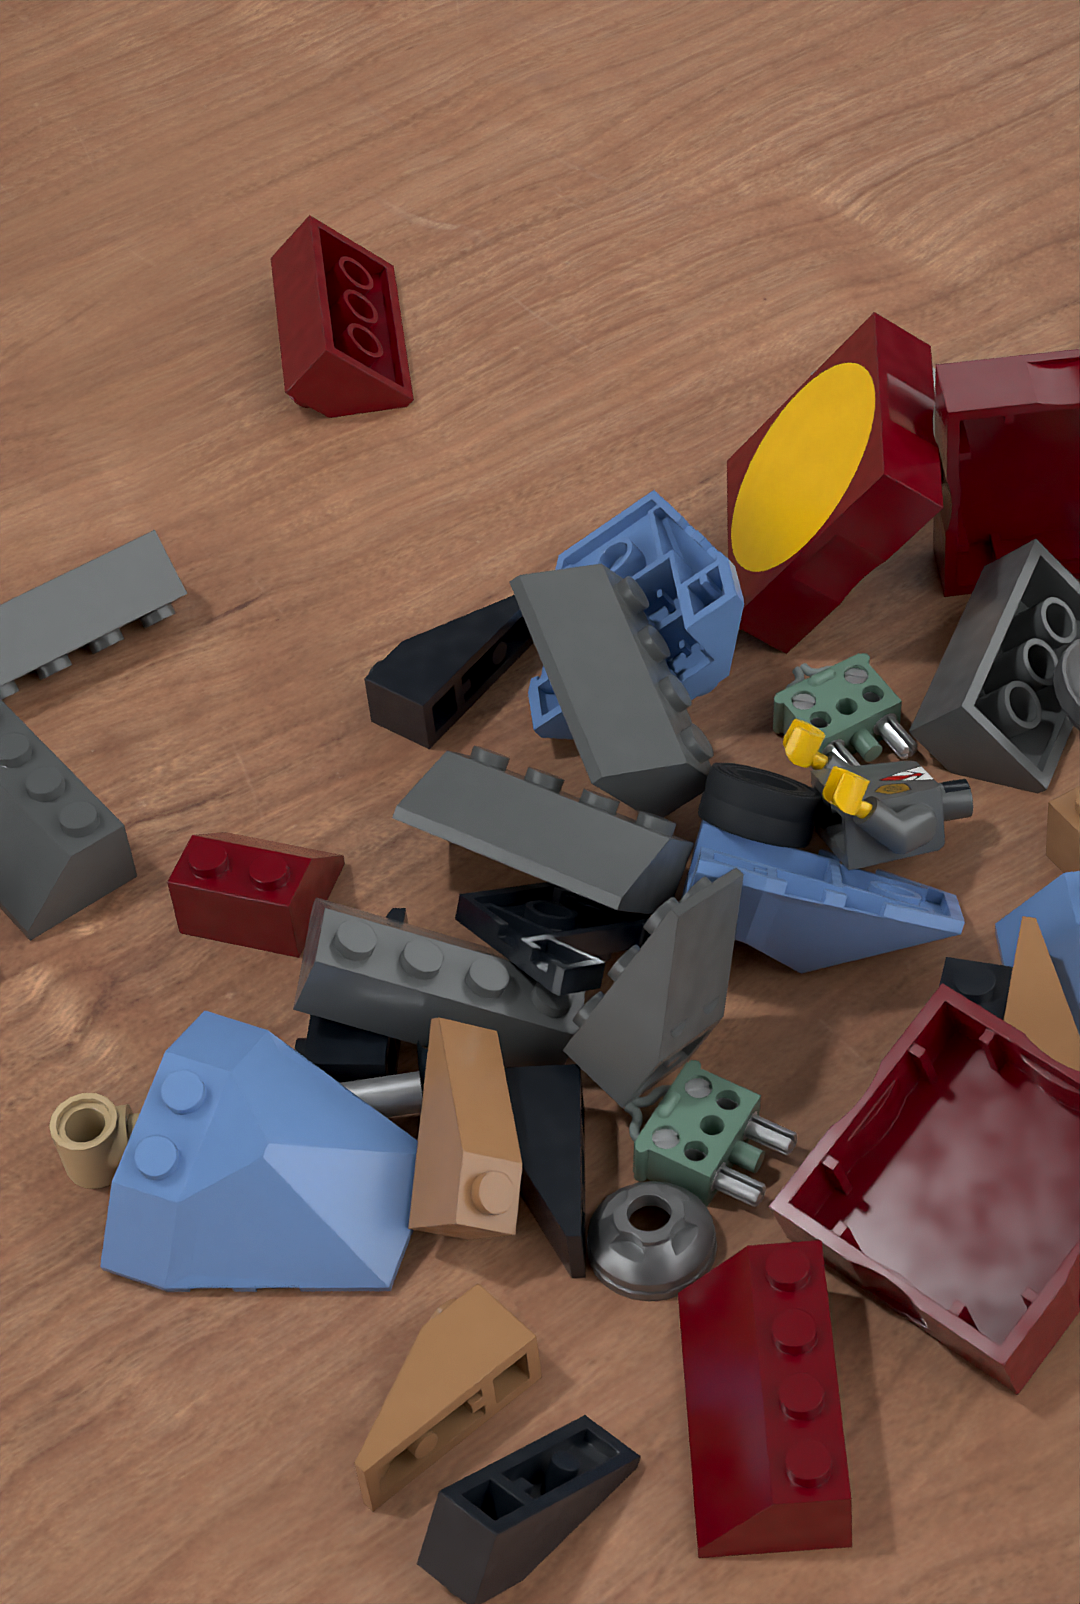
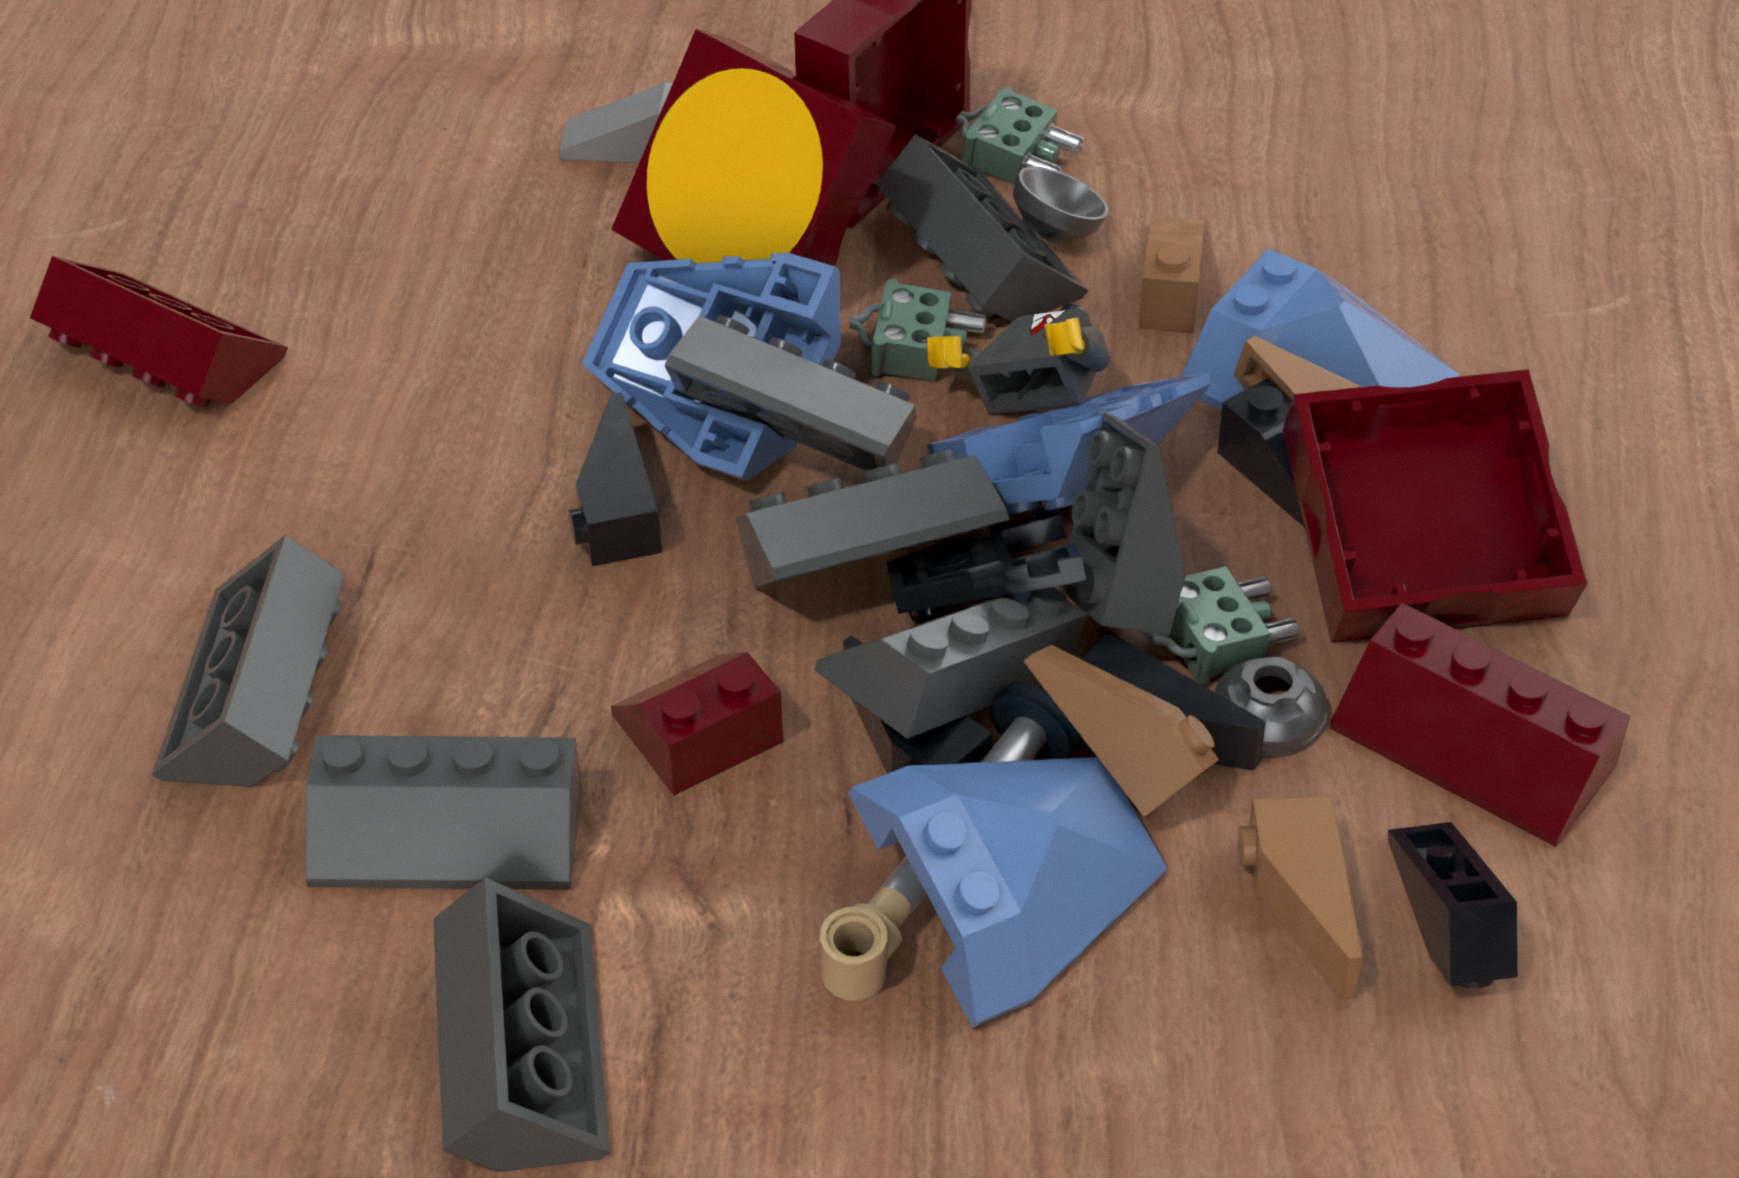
camera: 55 degrees left, 0 degrees up
(760, 805) = (968, 408): black tyre -> none

